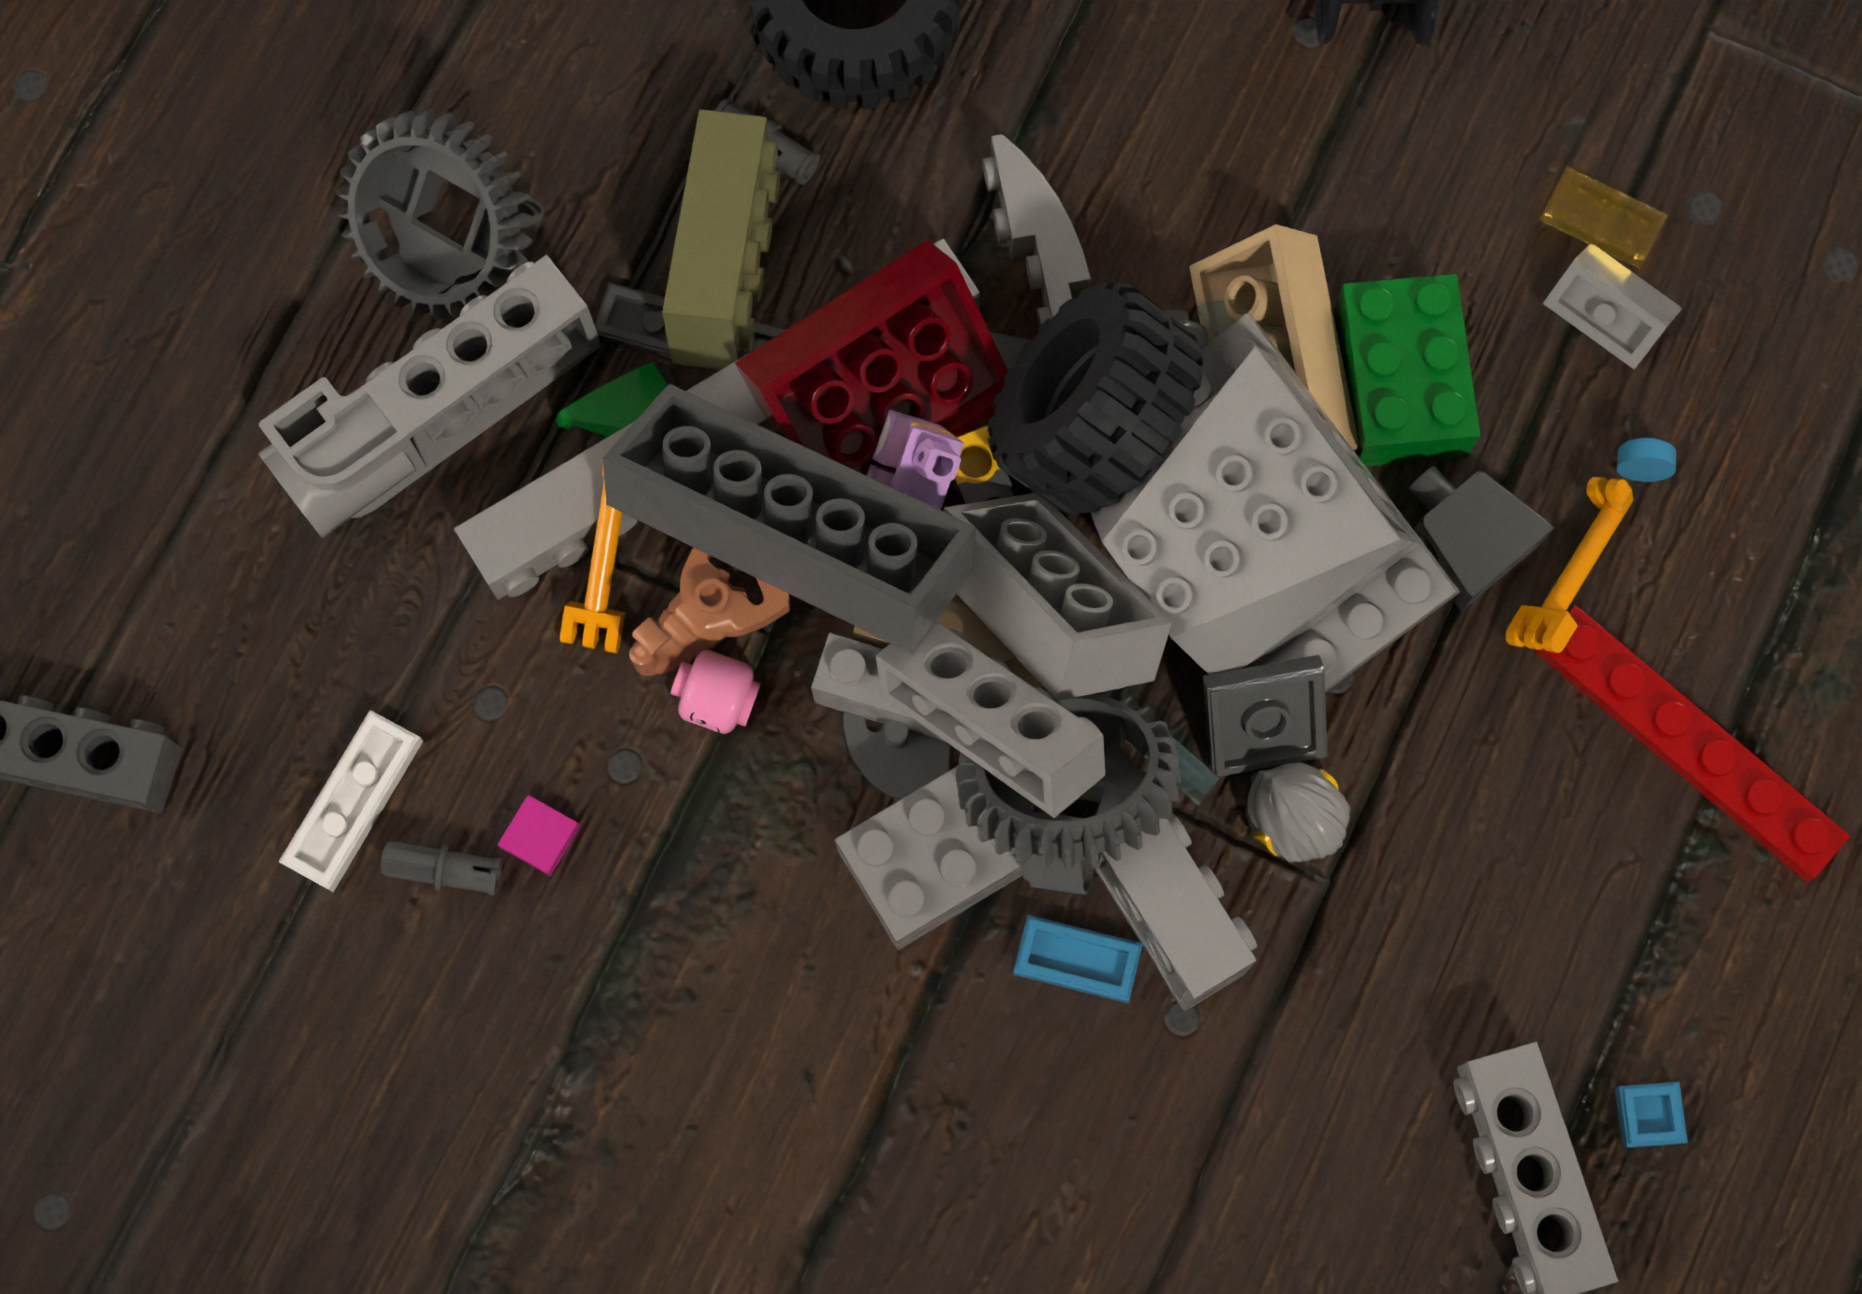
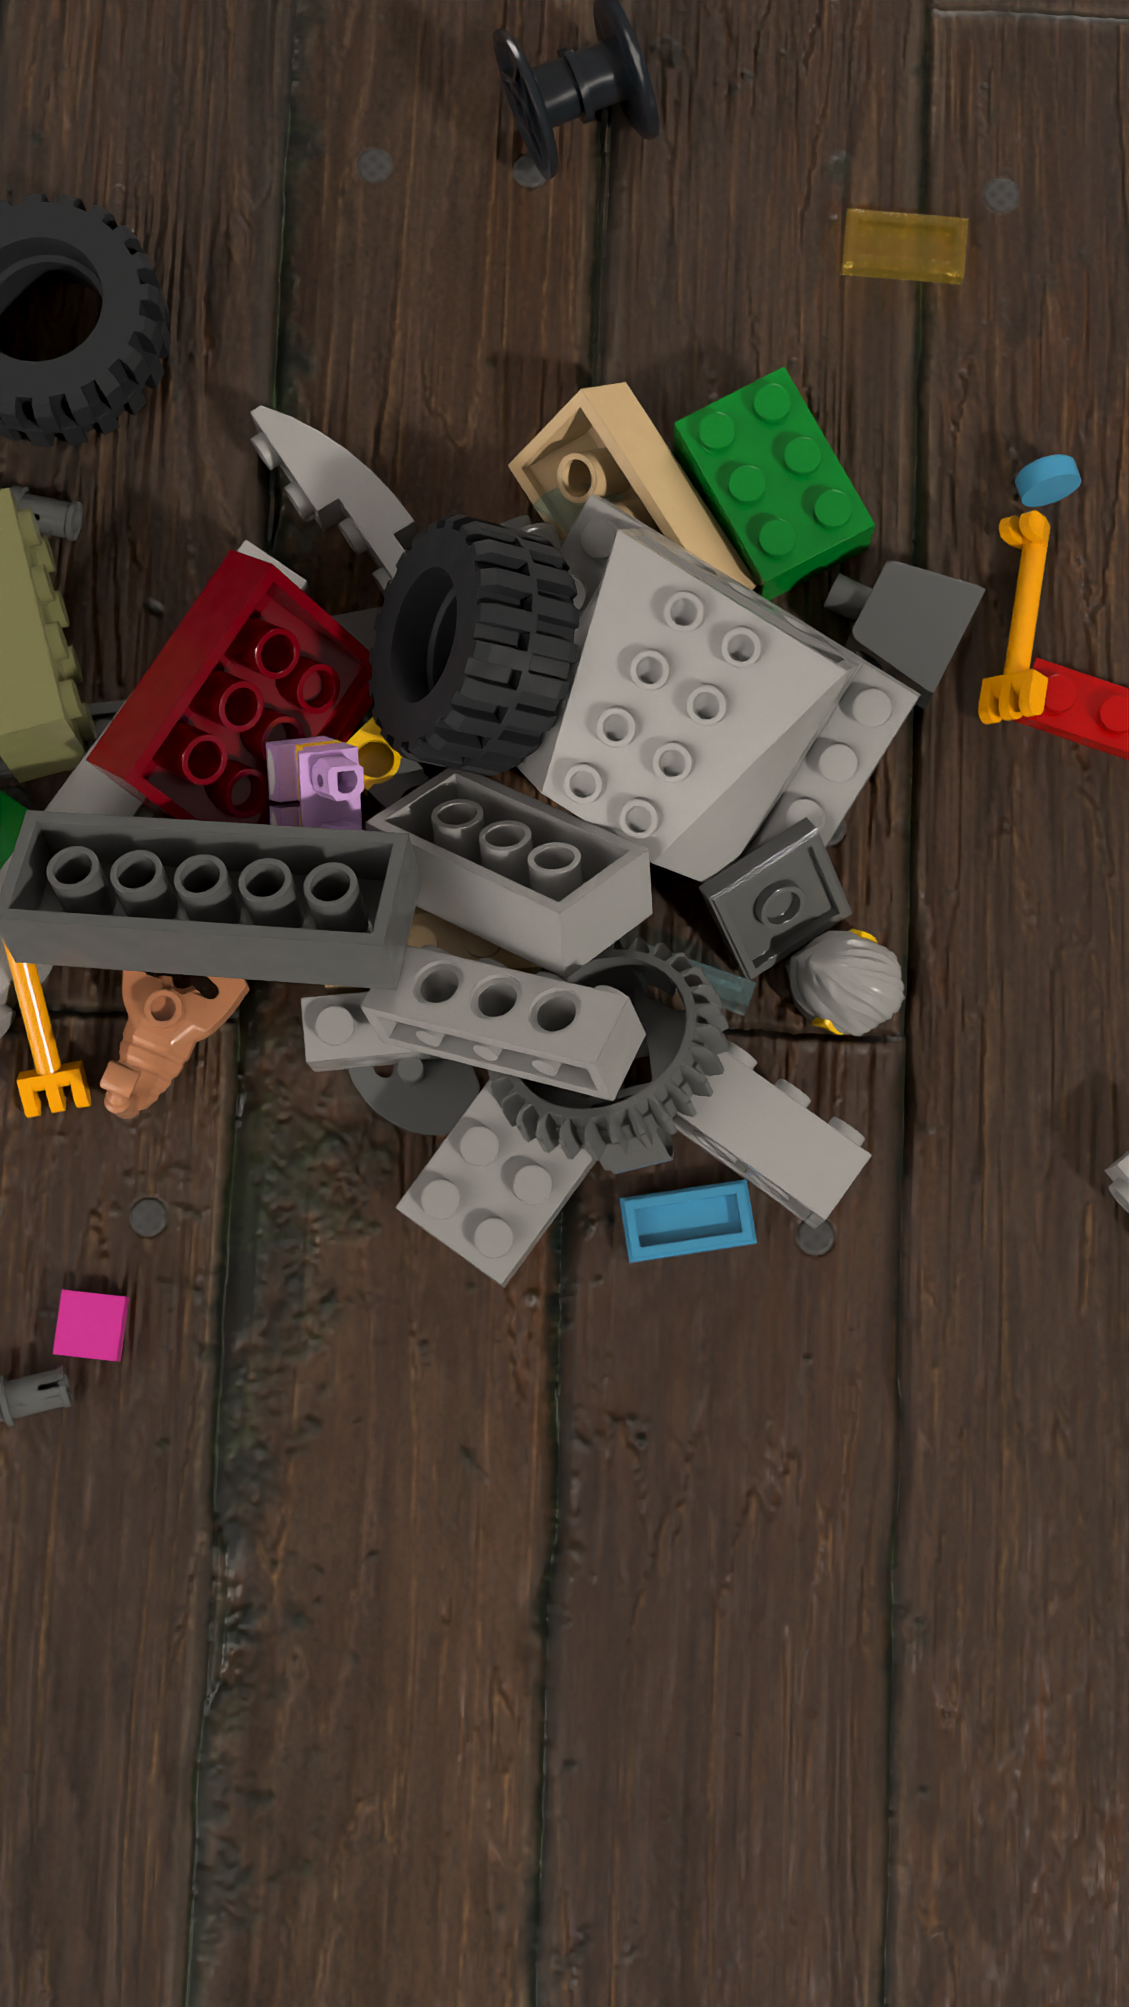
camera: 20 degrees left, 5 degrees up
(715, 691) = (209, 1104): bright pink head -> none
(1612, 305) = (950, 334): light grey panel -> none

